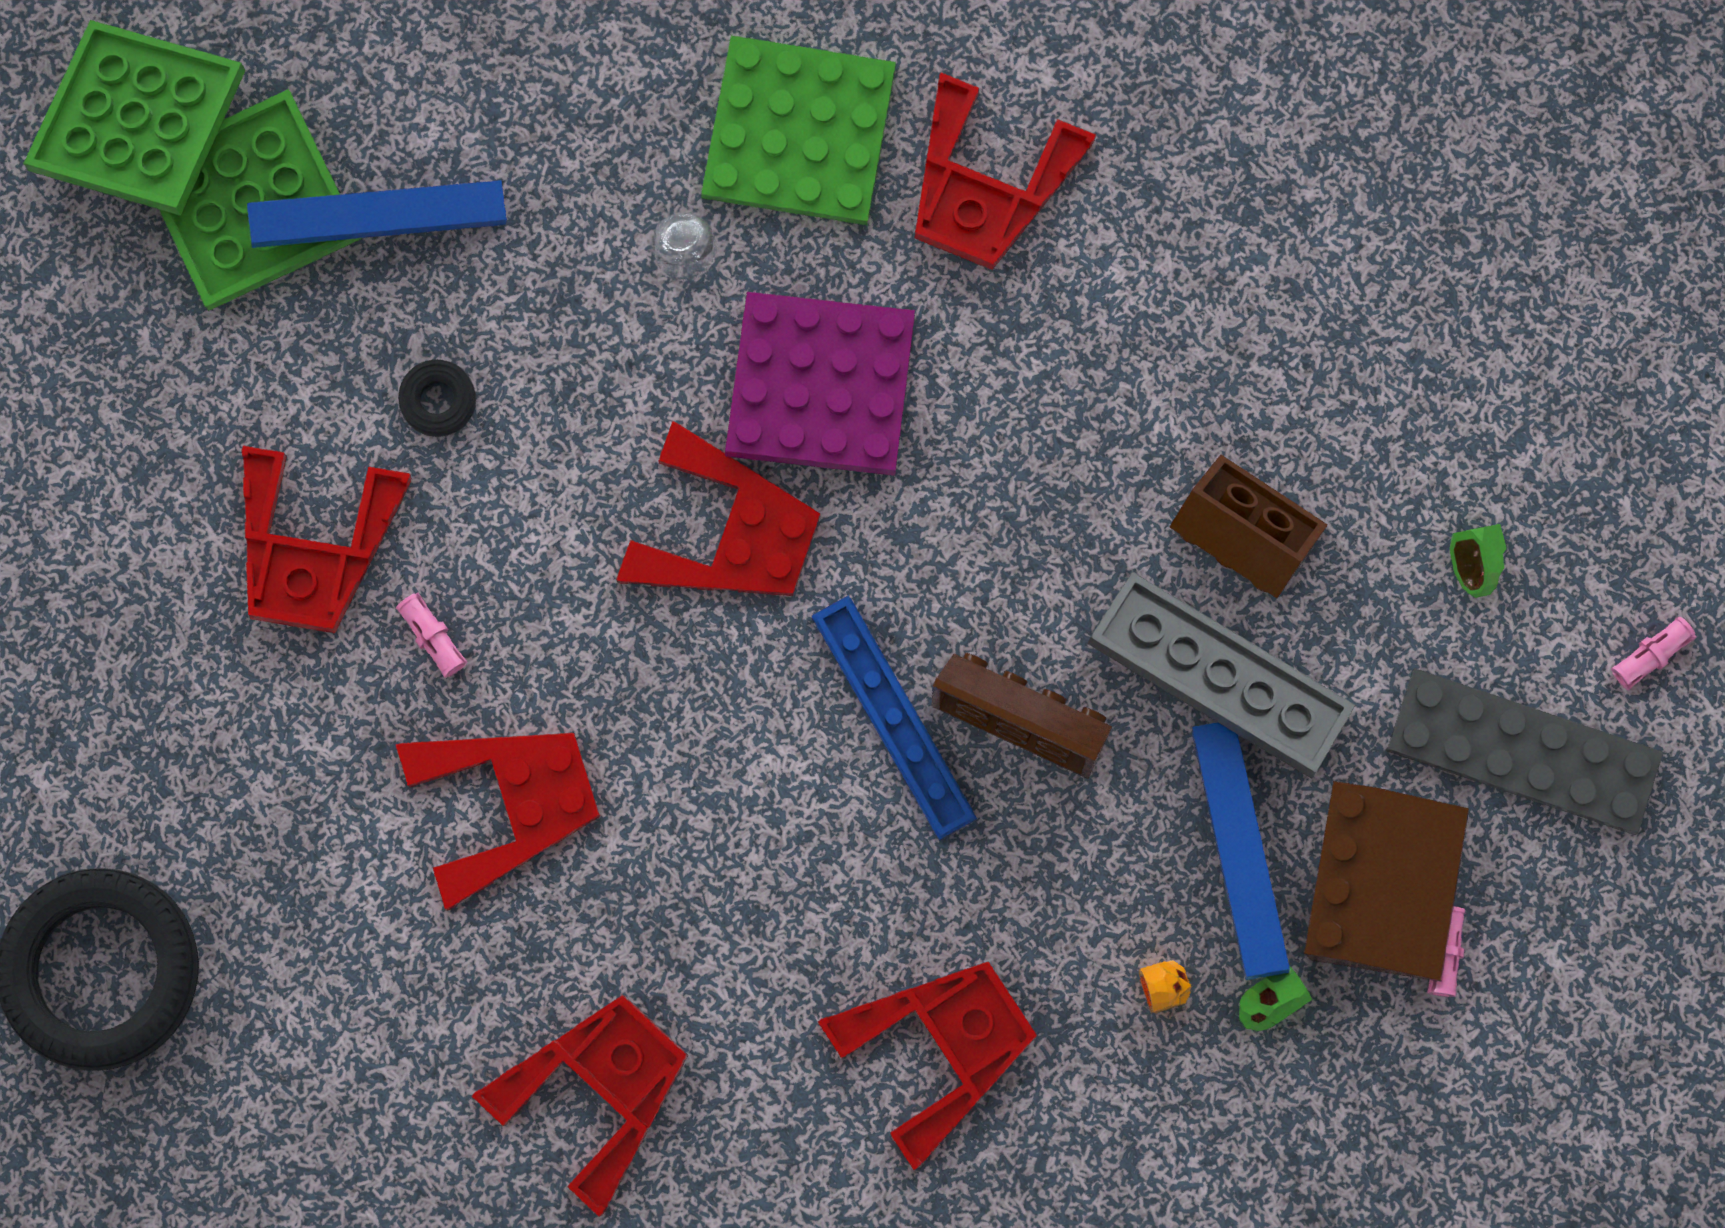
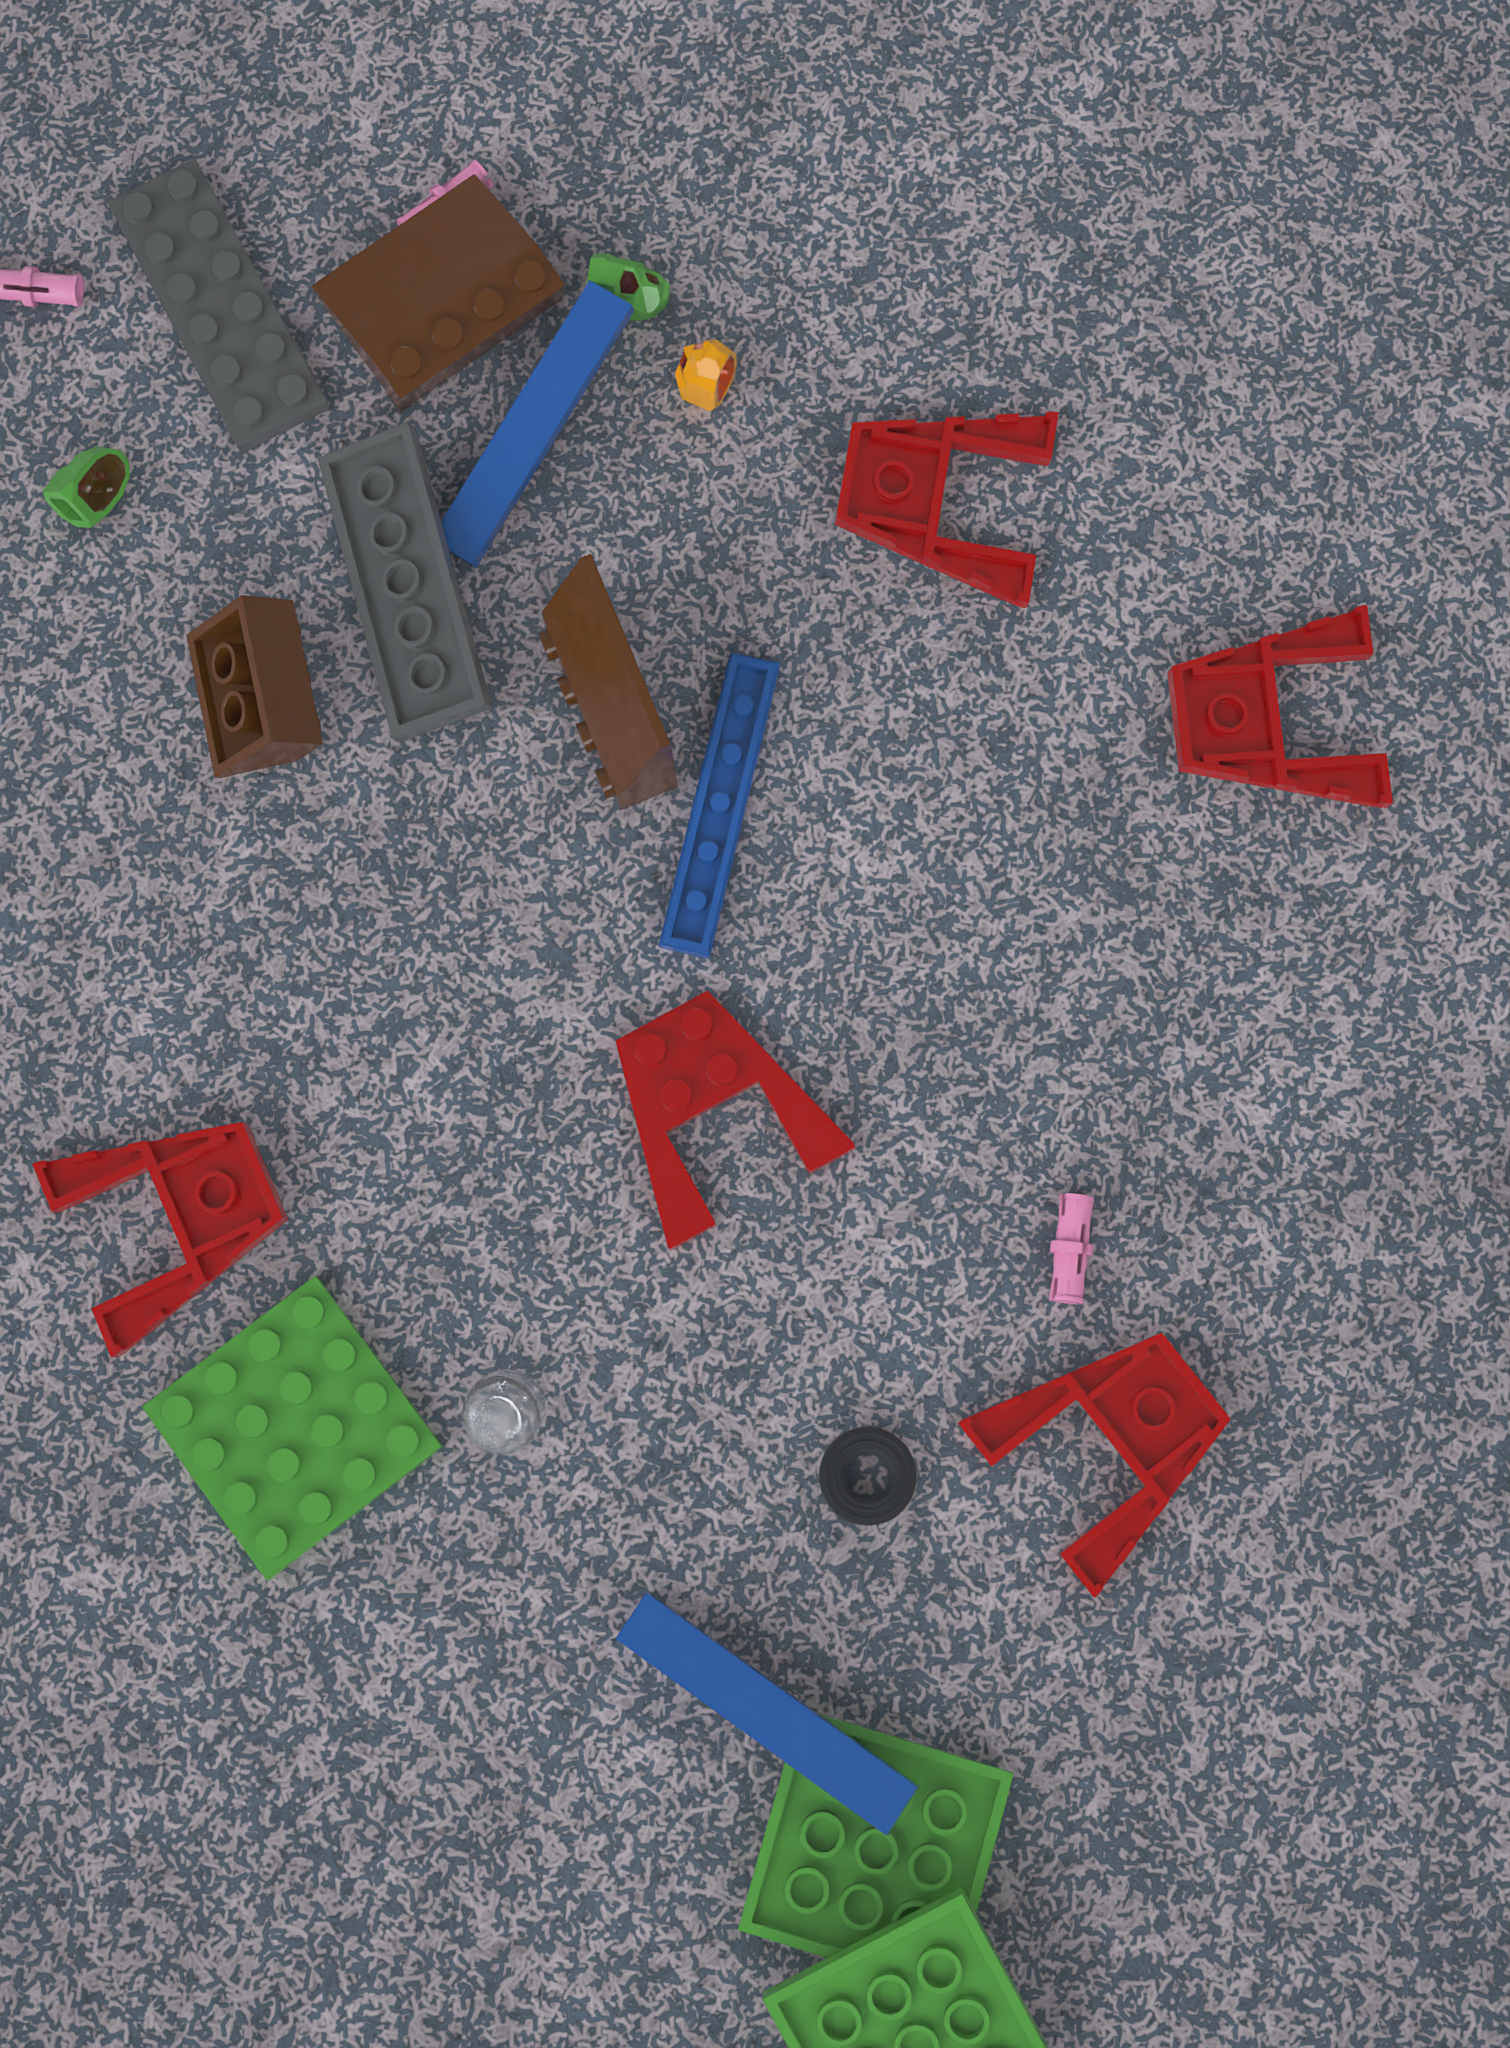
camera: 135 degrees left, 0 degrees up
(541, 789) = (1092, 1020): red wing -> none
(820, 383) = (502, 1161): magenta plate -> none

